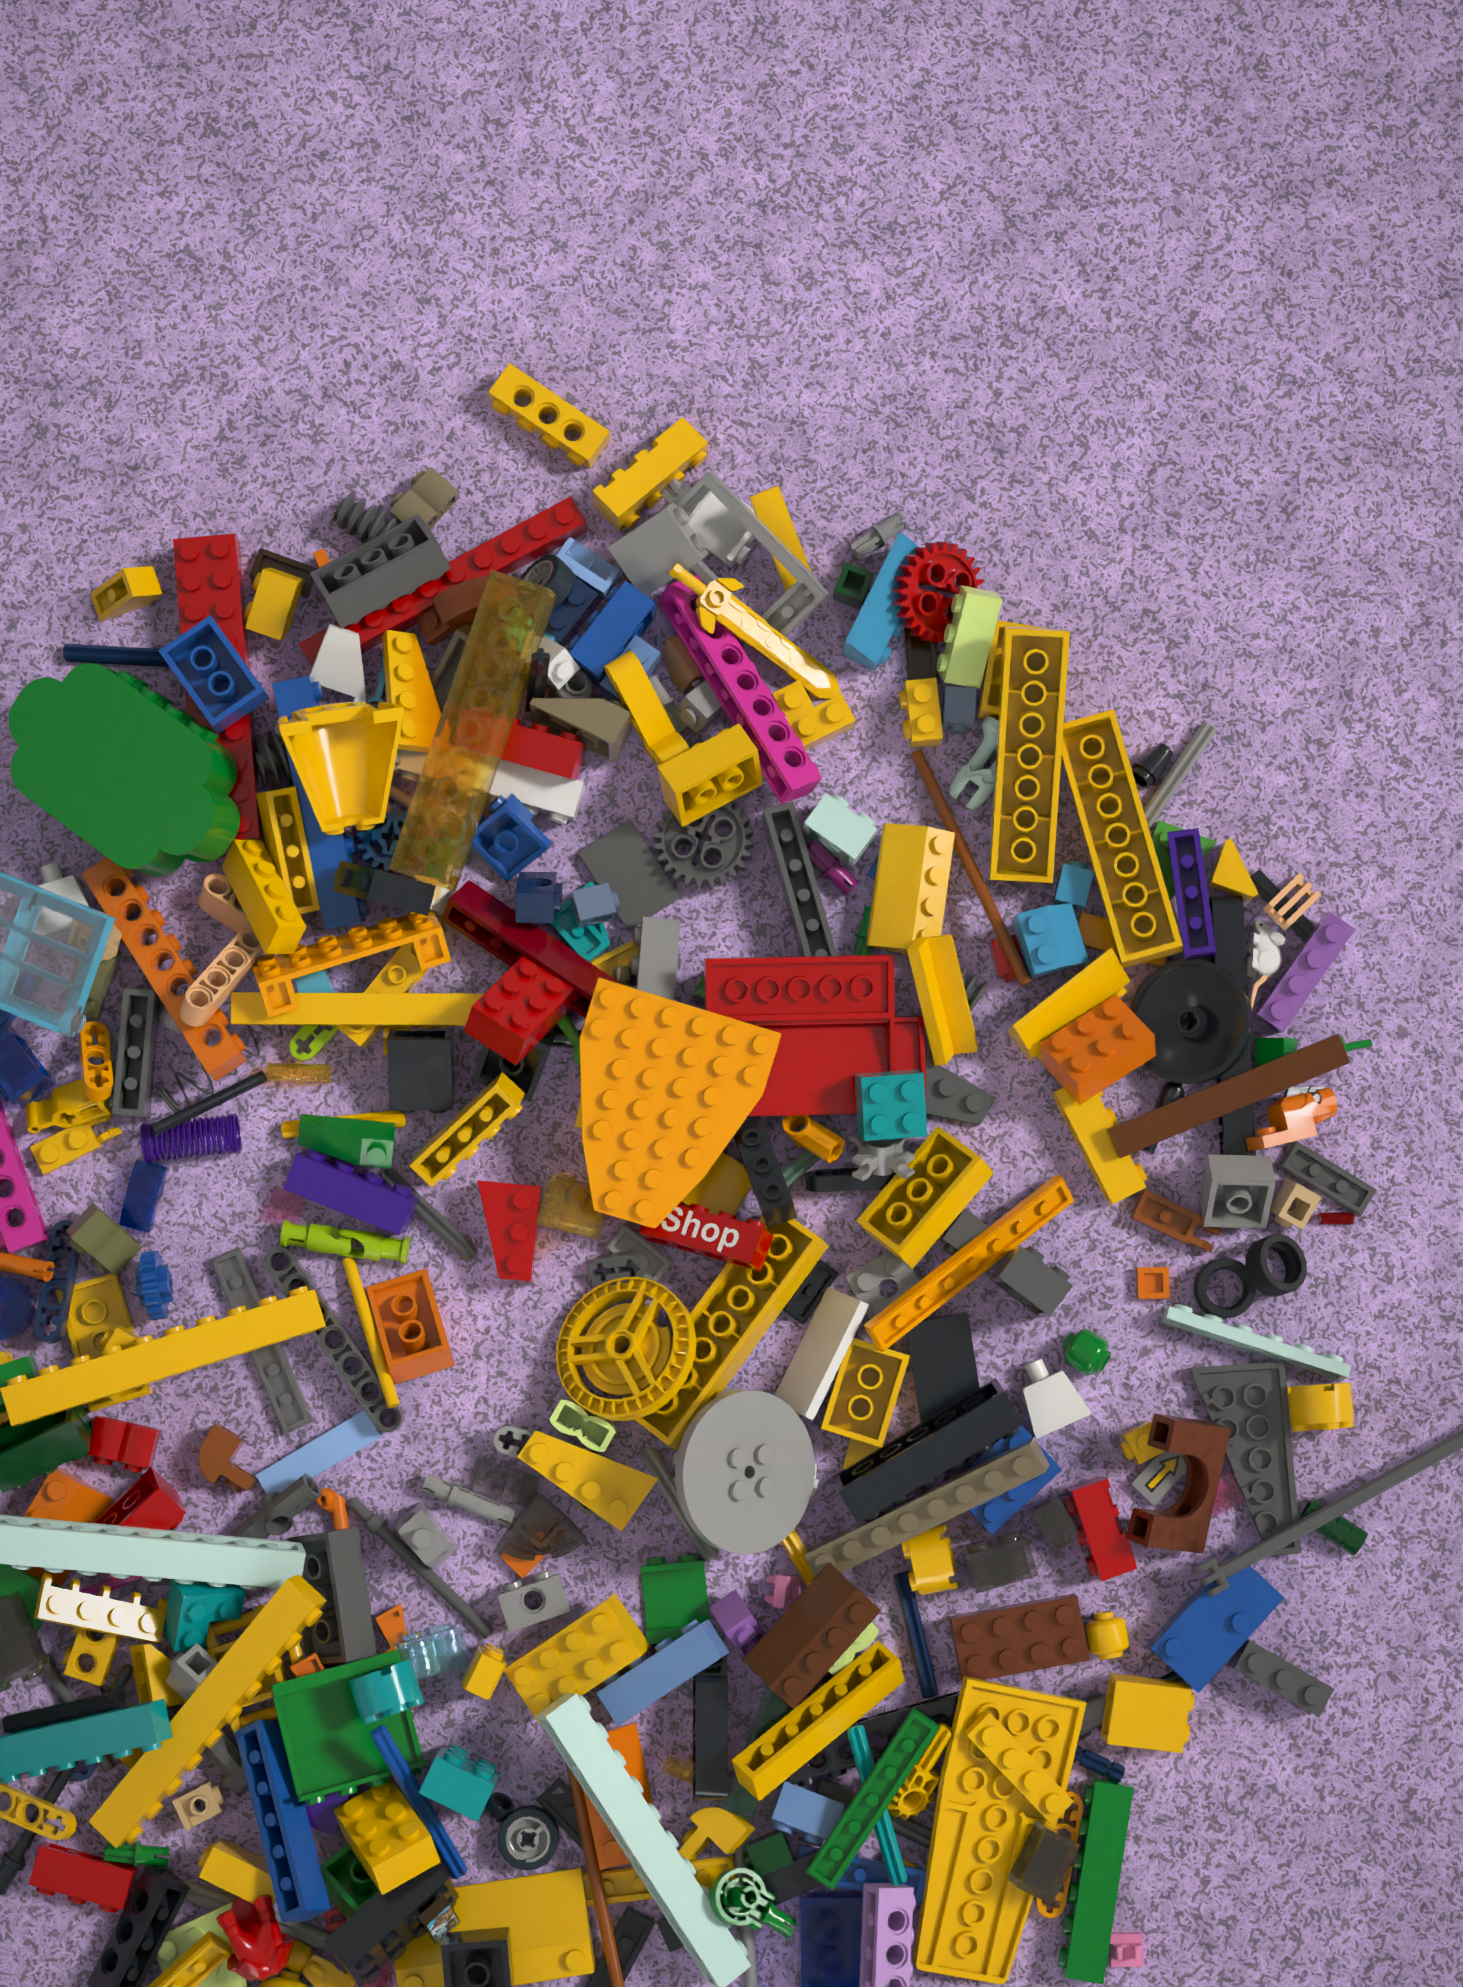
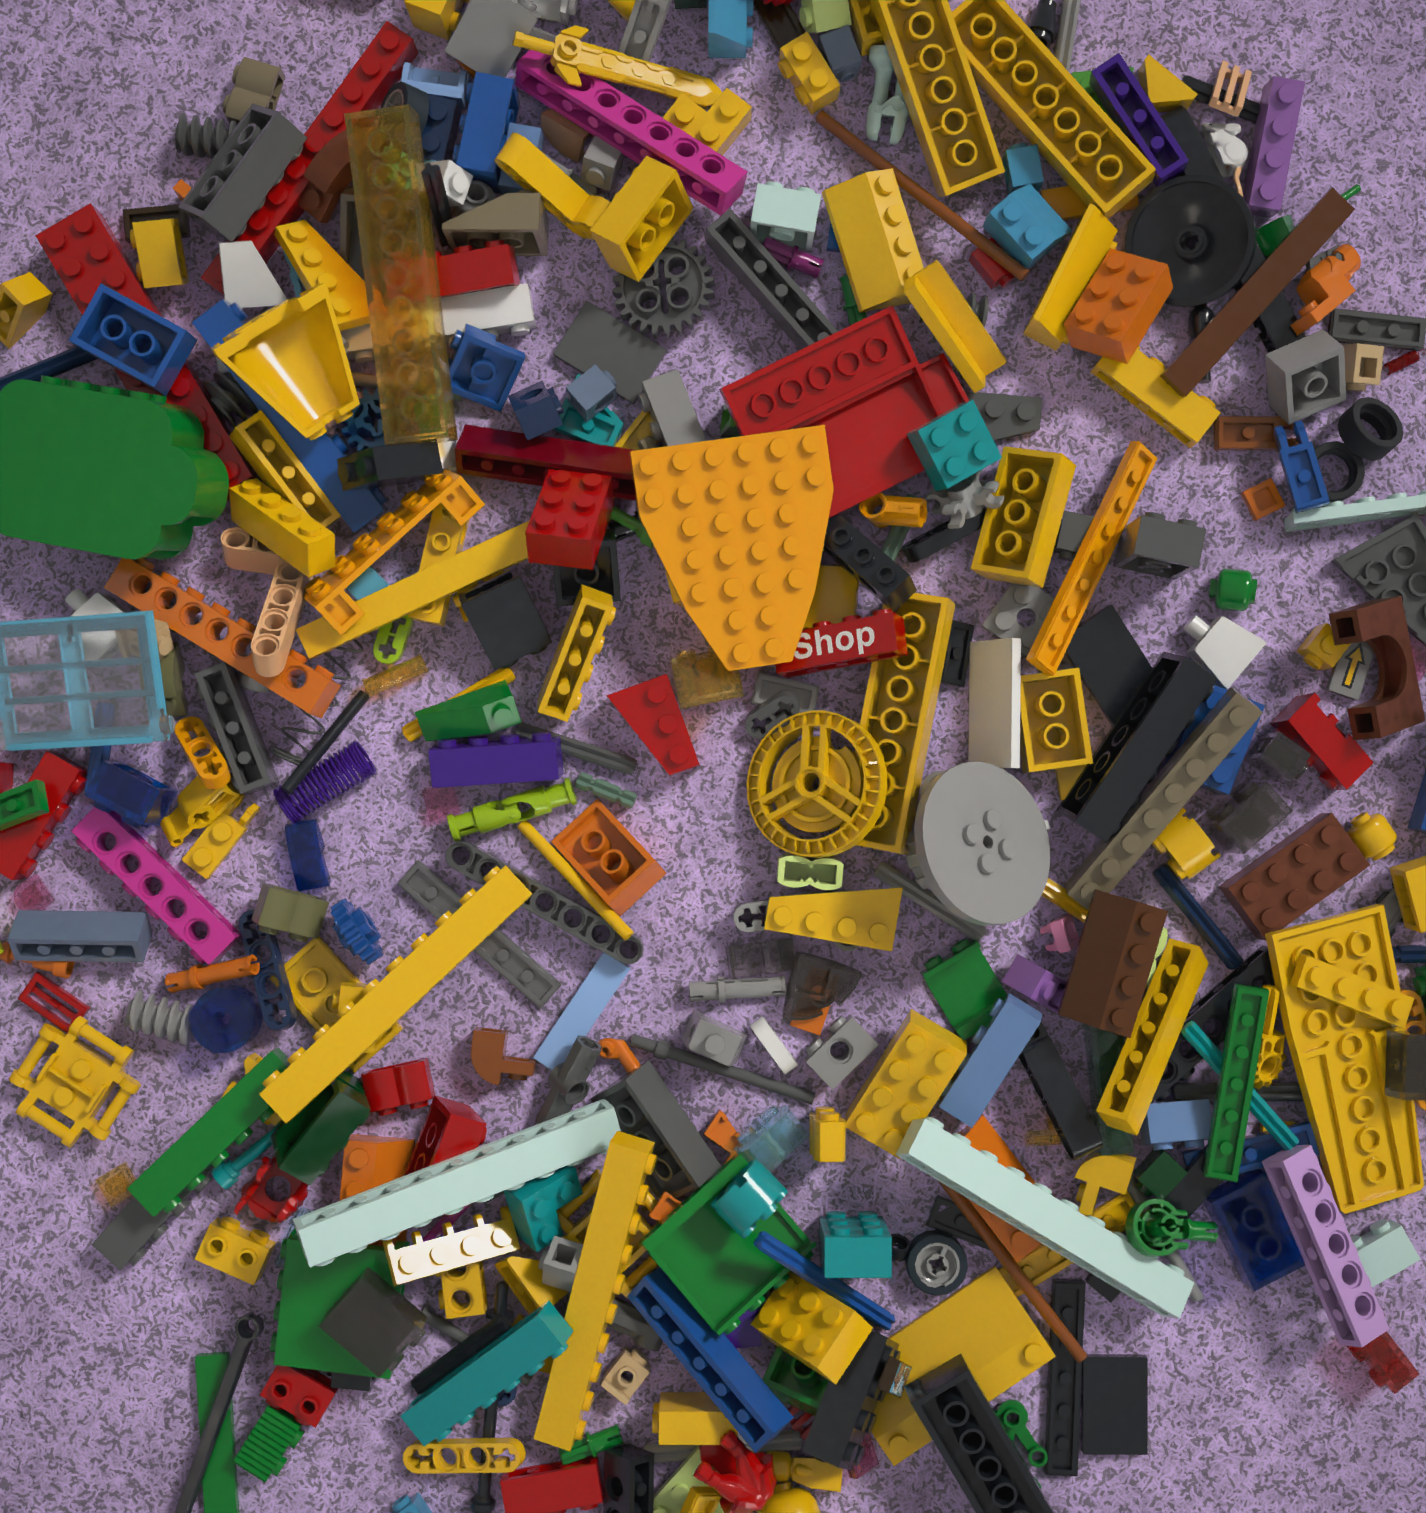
camera: 20 degrees left, 5 degrees up
(437, 1264) = (606, 790): none -> sand green axle
(476, 1567) = (773, 1045): none -> white beam
(1193, 1273) = (1301, 469): none -> blue hinge

